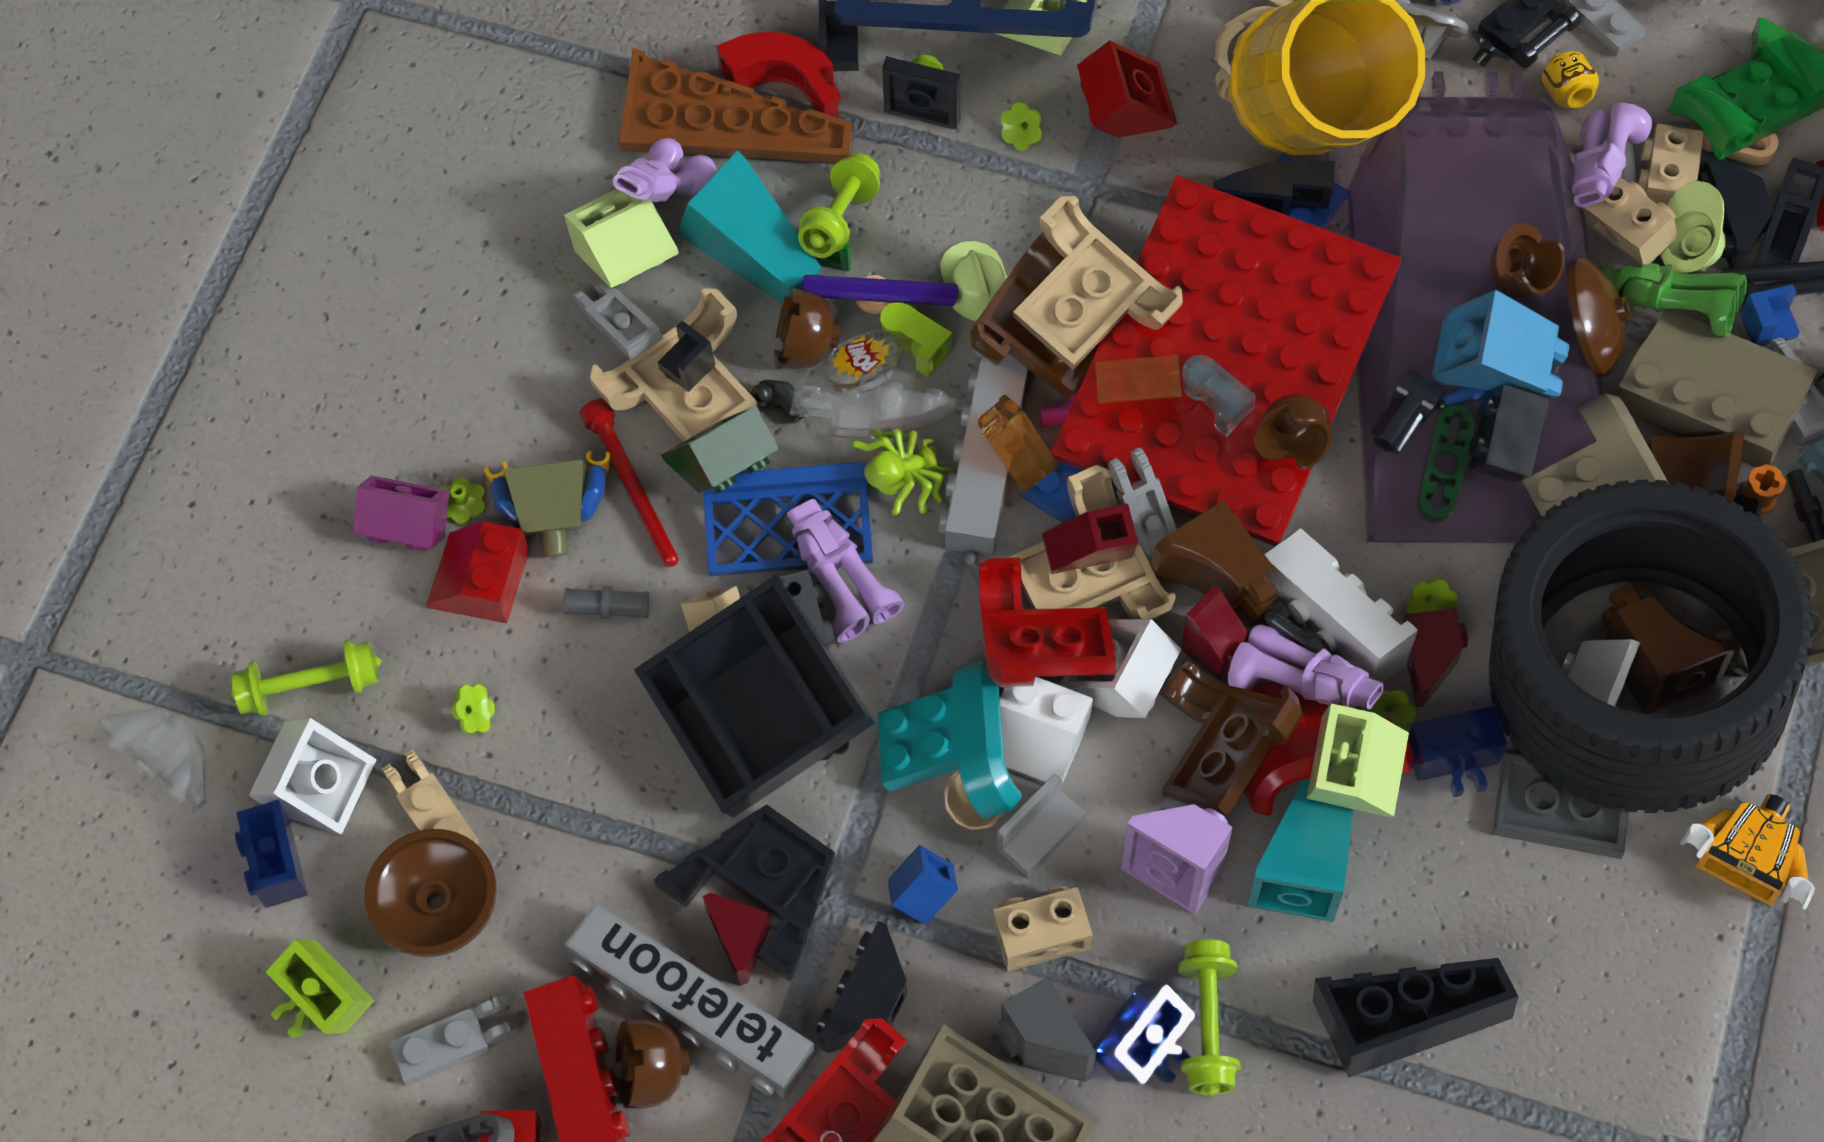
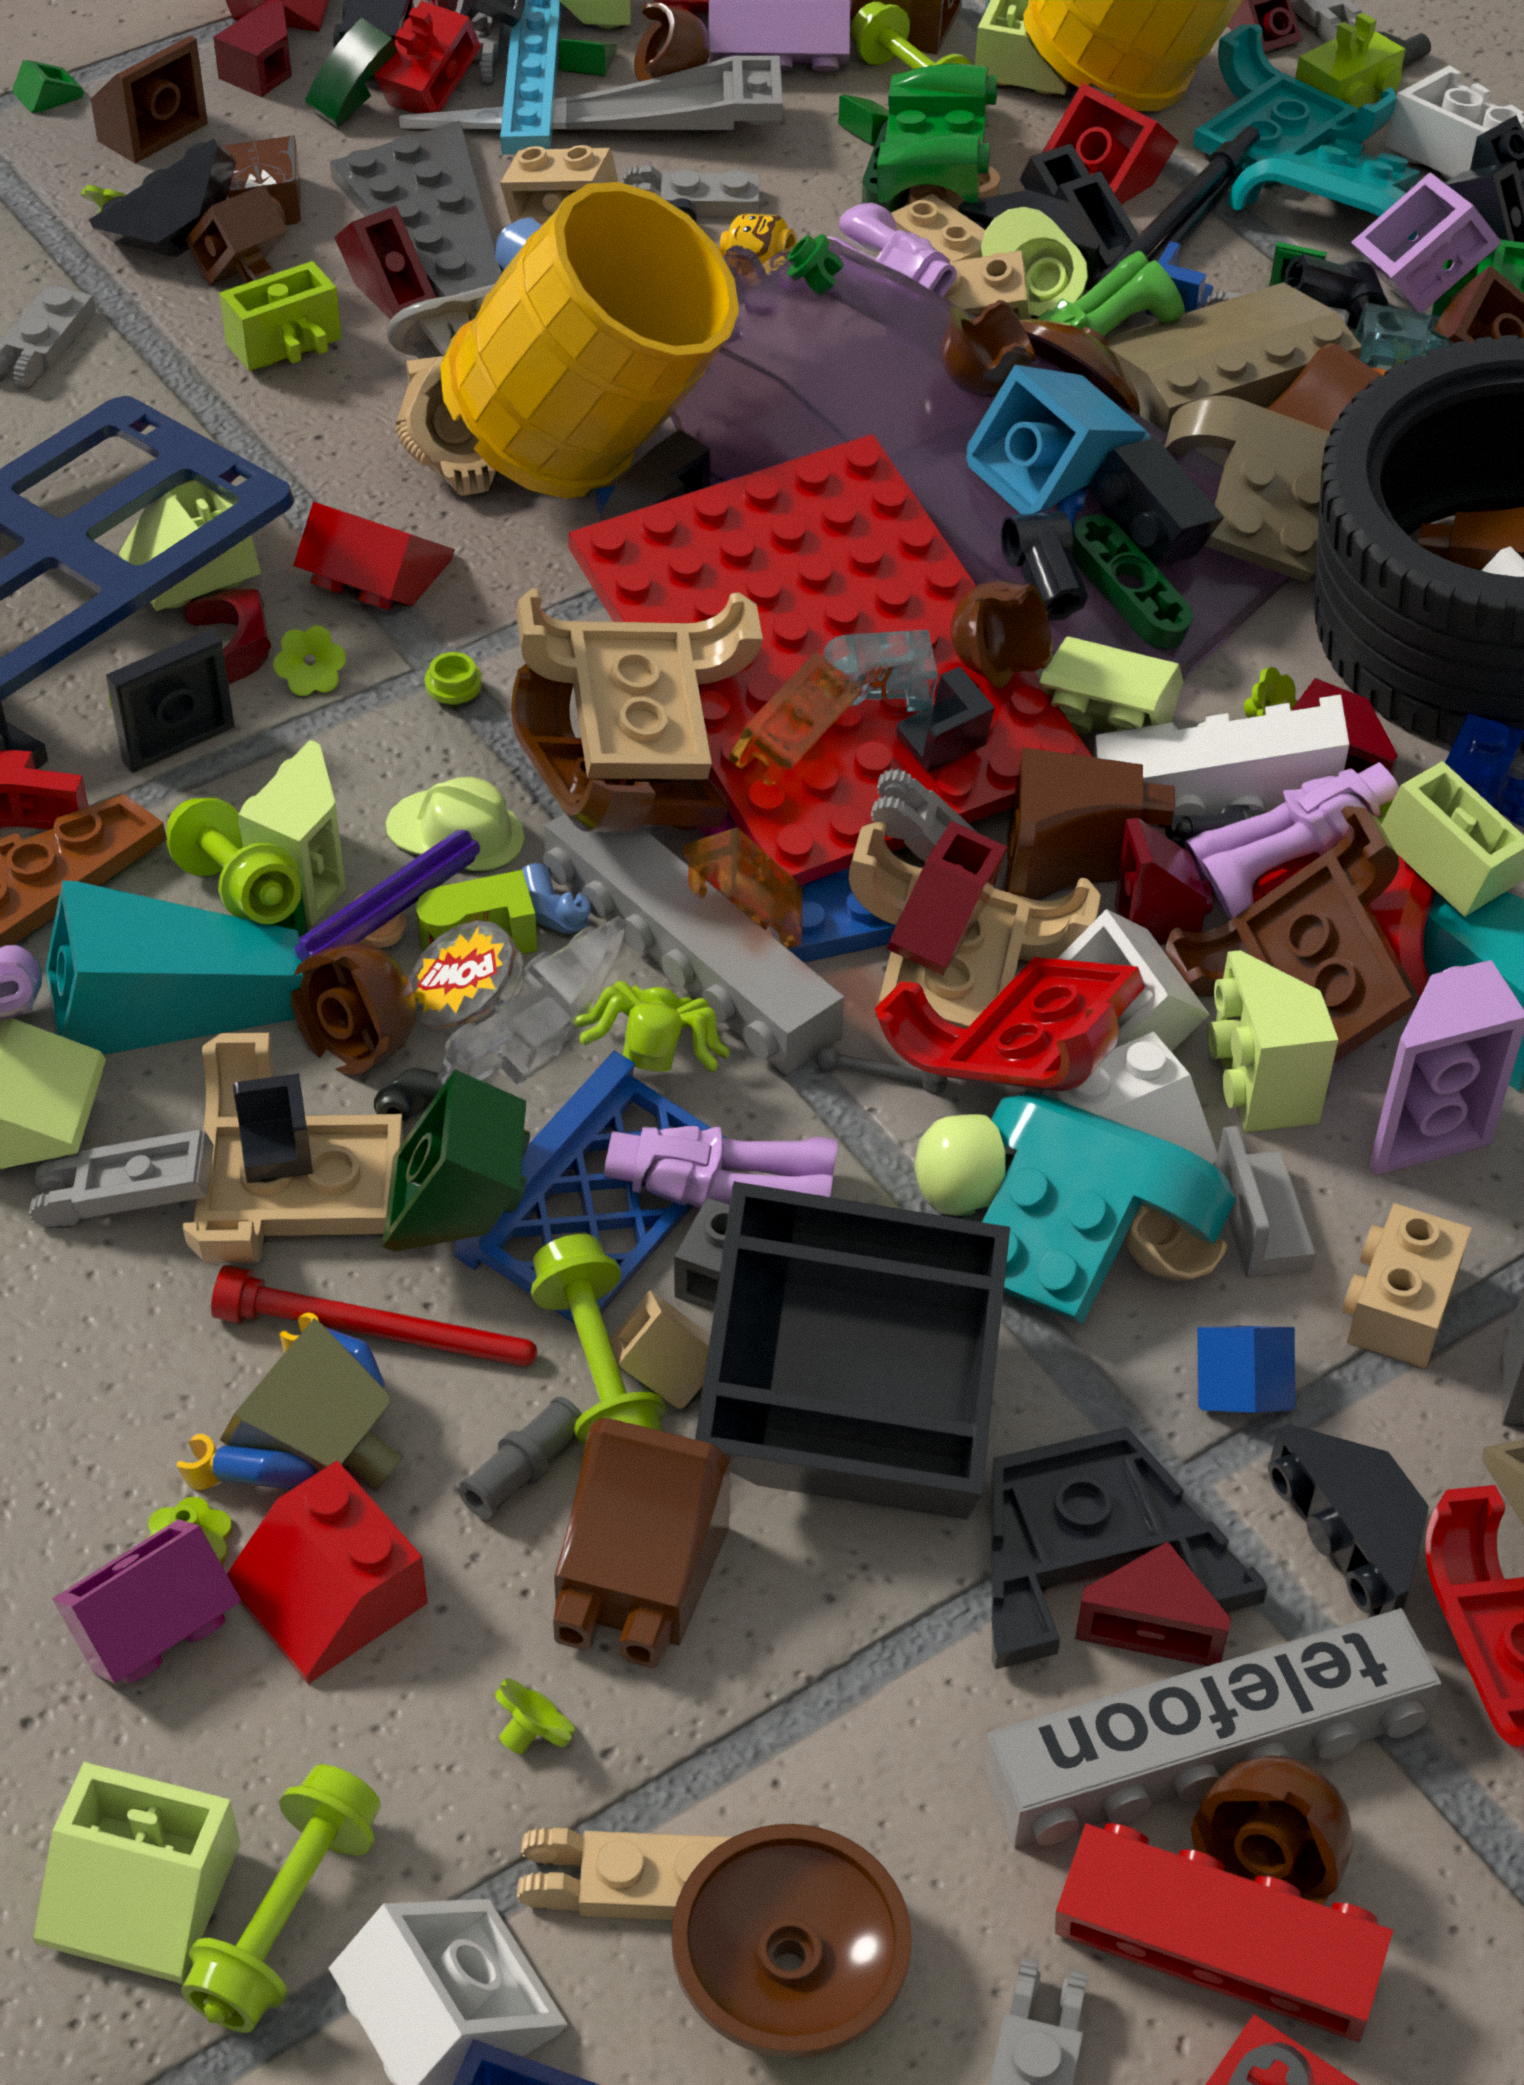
camera: 55 degrees left, 15 degrees down
(273, 613) = (134, 1871): none -> yellowish green slope
(588, 686) = (640, 1538): none -> reddish brown hips
(711, 545) = (574, 1276): none -> lime piece
(884, 219) = (301, 817): none -> yellowish green slope
(932, 665) = (960, 1164): none -> yellowish green hair
(955, 361) = (553, 910): none -> medium blue arm
(1014, 87) = (250, 642): none -> dark red helmet
(1078, 189) = (453, 678): none -> lime plate
(1136, 762) = (1271, 1044): none -> yellowish green slope
(1213, 452) = (952, 726): none -> black panel
(1343, 512) = (1110, 687): none -> yellowish green slope
(1501, 123) = (814, 263): none -> green plate

